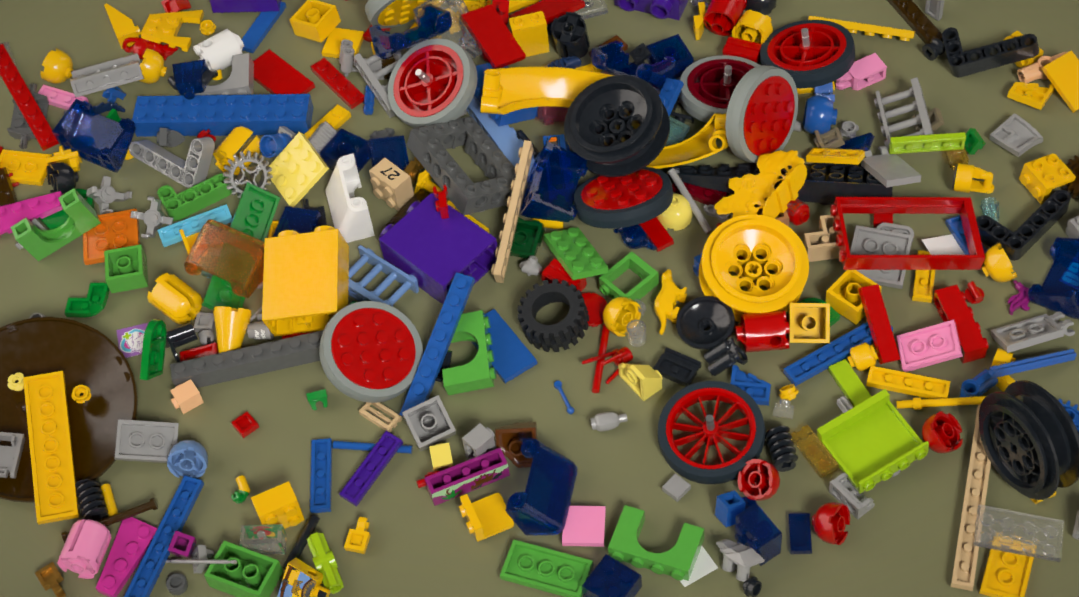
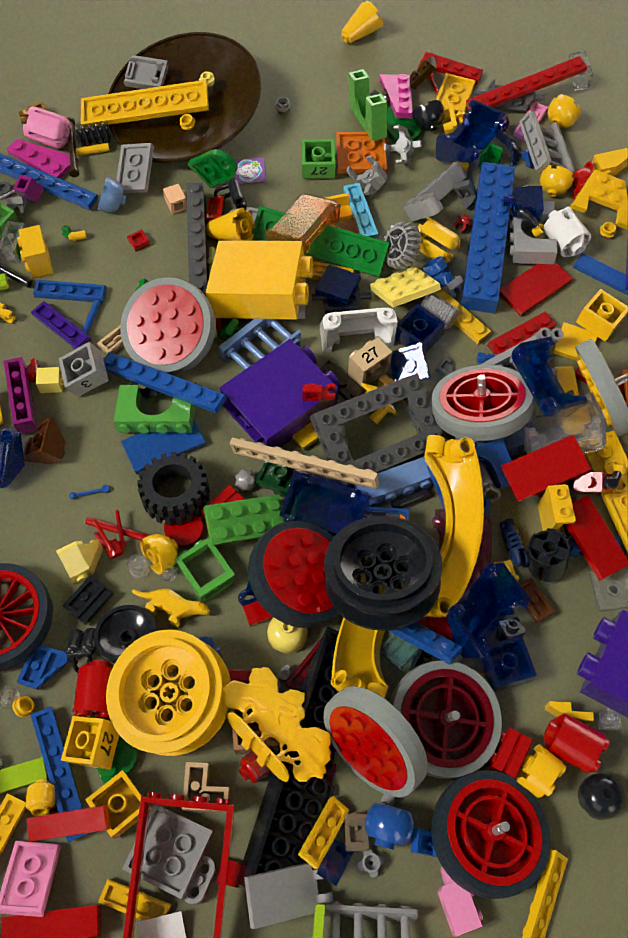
camera: 90 degrees right, 10 degrees up
(89, 306) = (289, 135): green plate -> none
(175, 299) = (274, 189): yellow cylinder -> none
(193, 199) = (386, 201): bright green beam -> none
(478, 441) = (44, 404): light grey brick -> none
(607, 421) = (45, 523): light grey plant -> none
(696, 211) = (291, 648): light grey bar -> none

